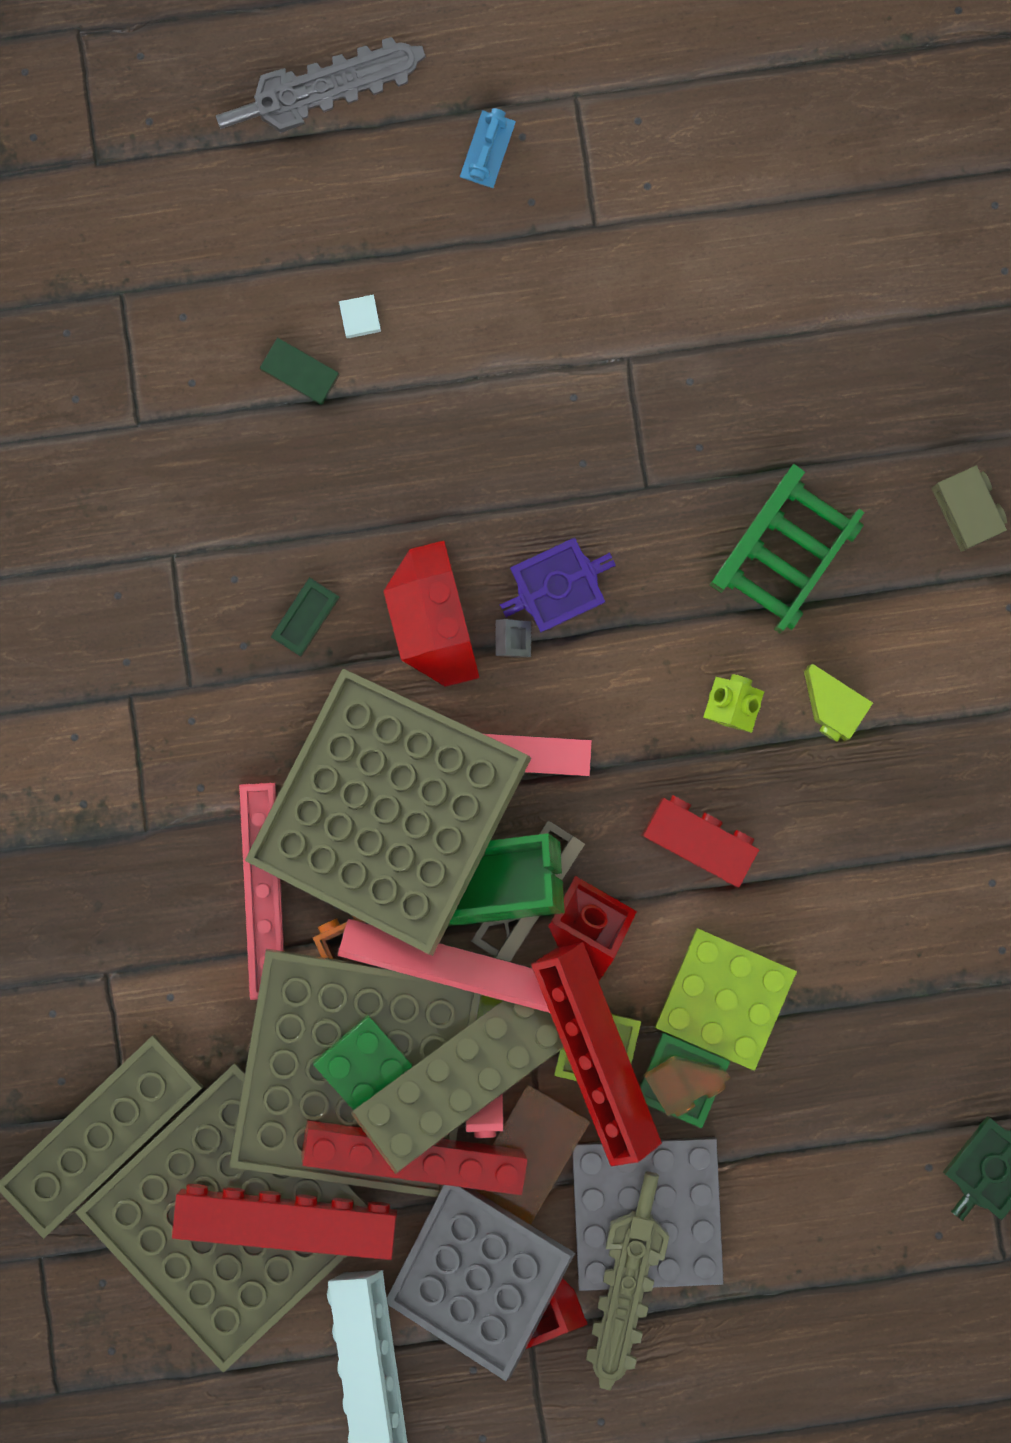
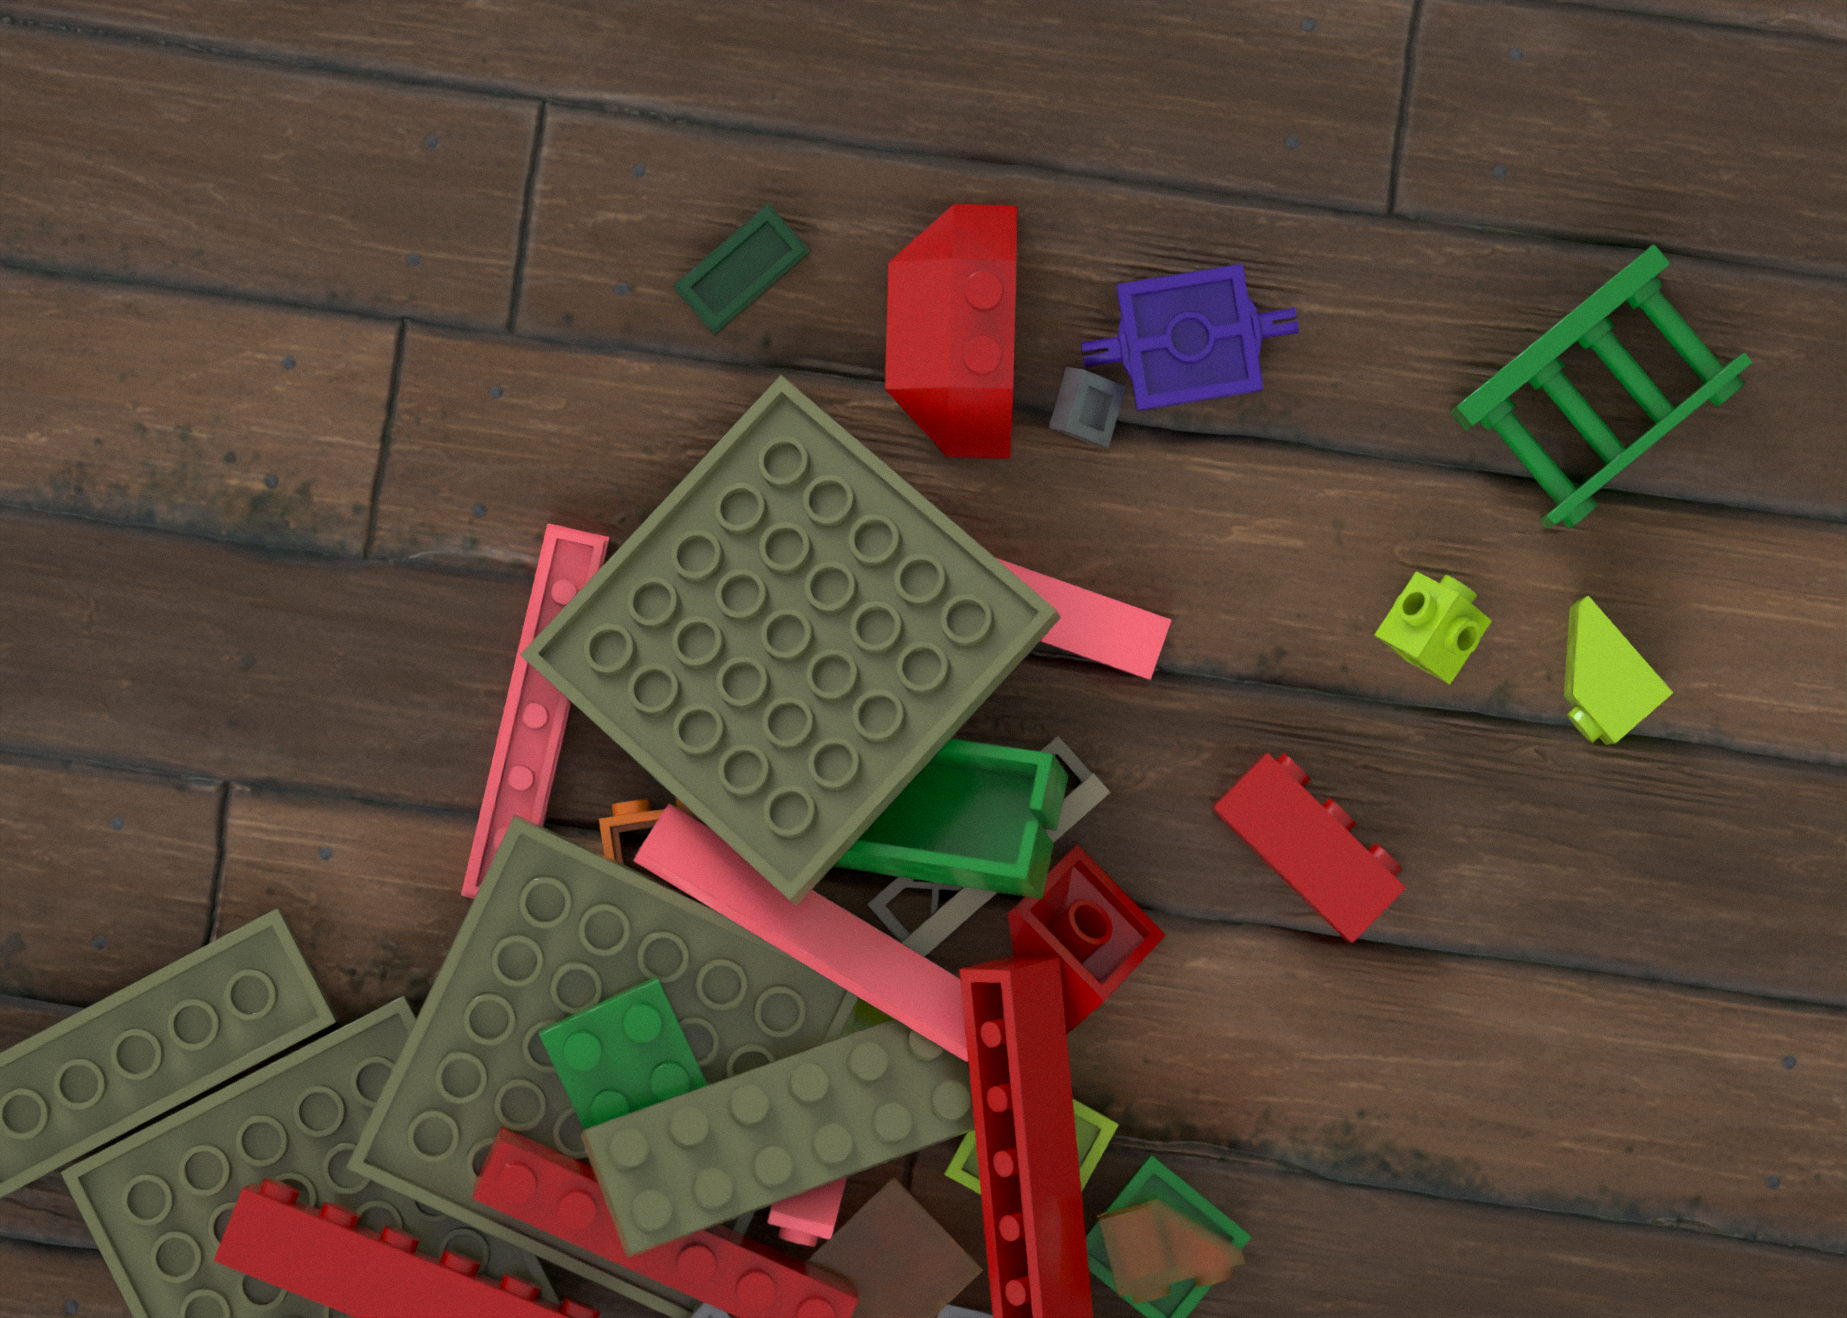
camera: 20 degrees right, 0 degrees up
(725, 999) = (1274, 1128): lime plate -> none

